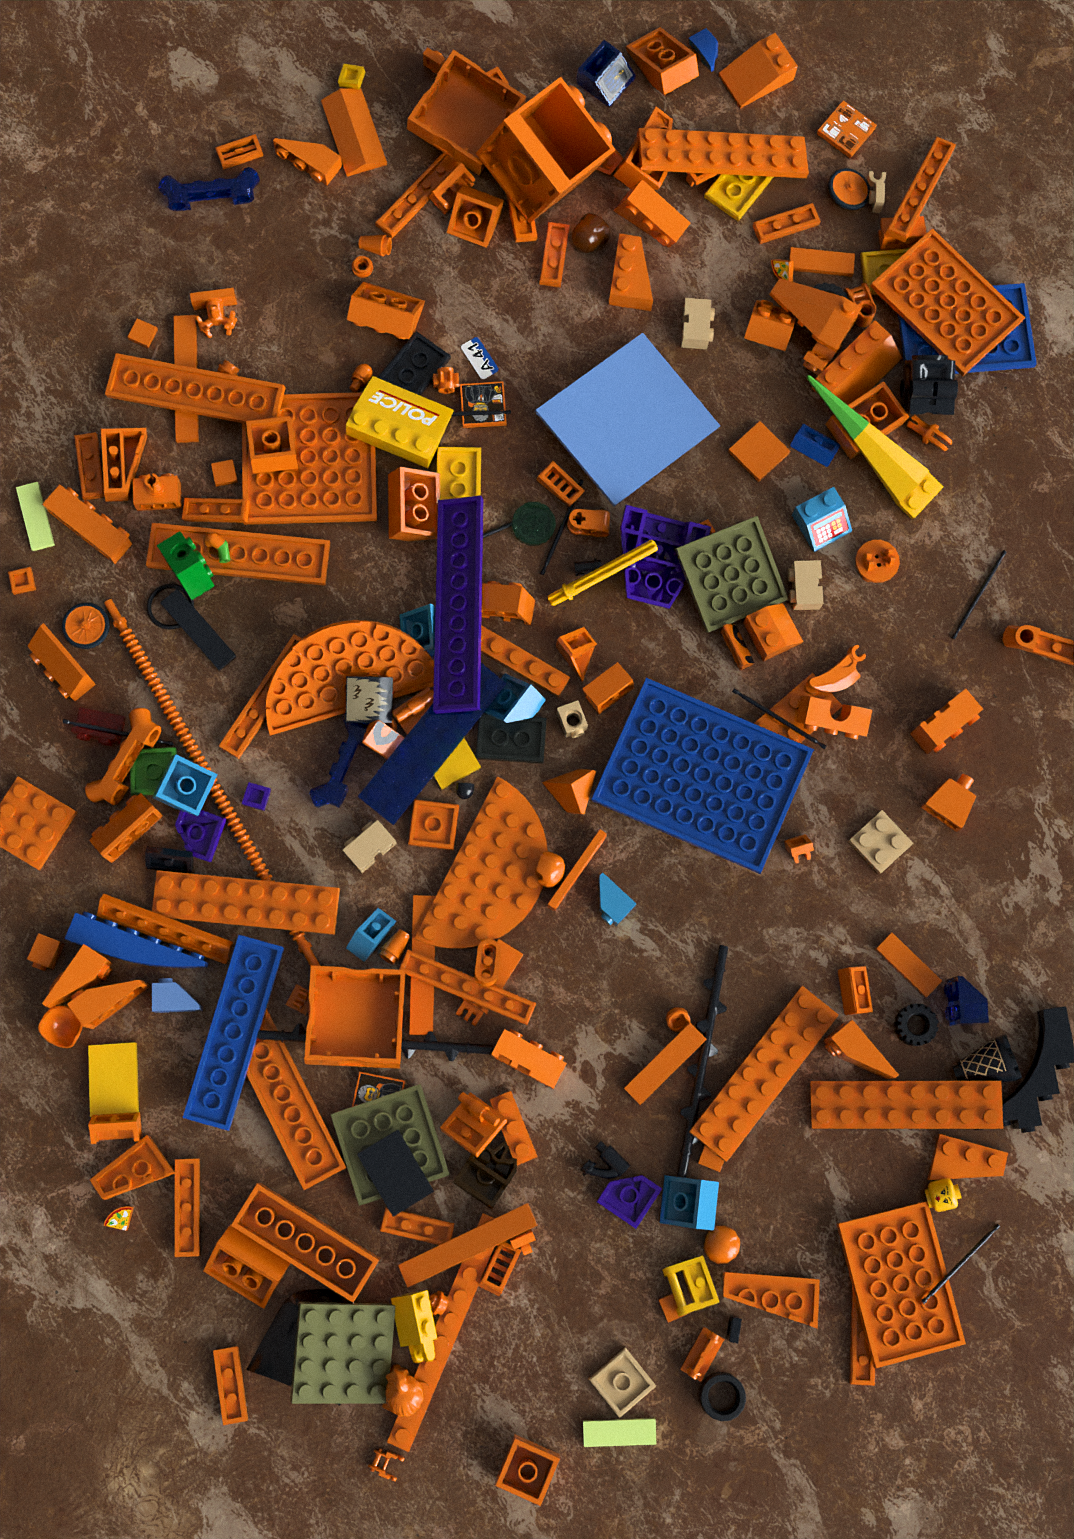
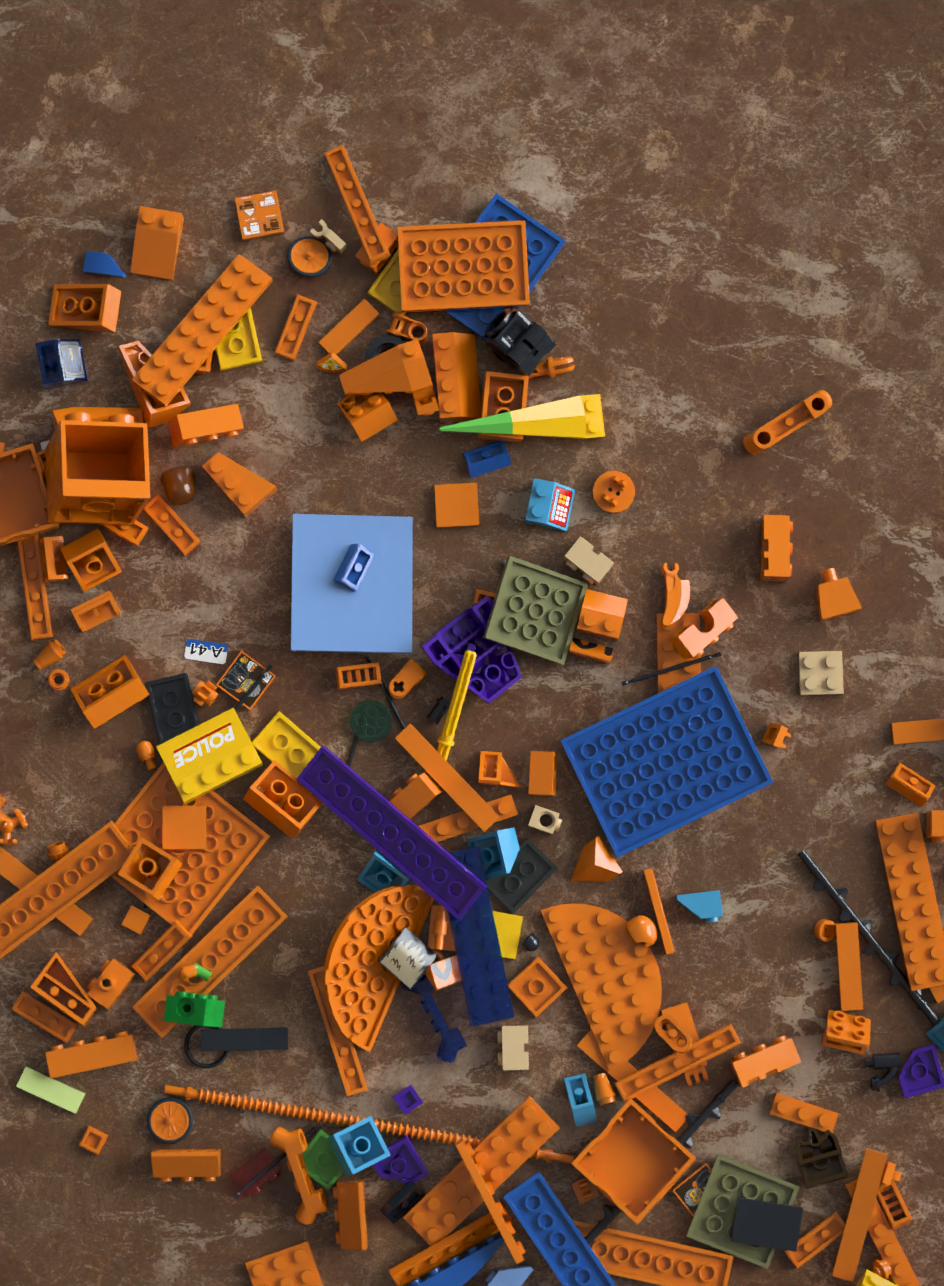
camera: 45 degrees left, 5 degrees up
(222, 936) = (496, 1209): none -> orange plate
(327, 447) = (183, 827): none -> orange tile
(439, 250) = (96, 611): none -> orange hinge
(473, 1124) = (778, 1140): orange plate -> none
(540, 615) = (447, 777): none -> orange tile
(609, 1107) = (847, 1032): none -> orange bracket
(642, 409) = (354, 567): none -> blue slope
(696, 320) = (315, 460): tan brick -> none
(979, 594) = (701, 438): black piece -> none

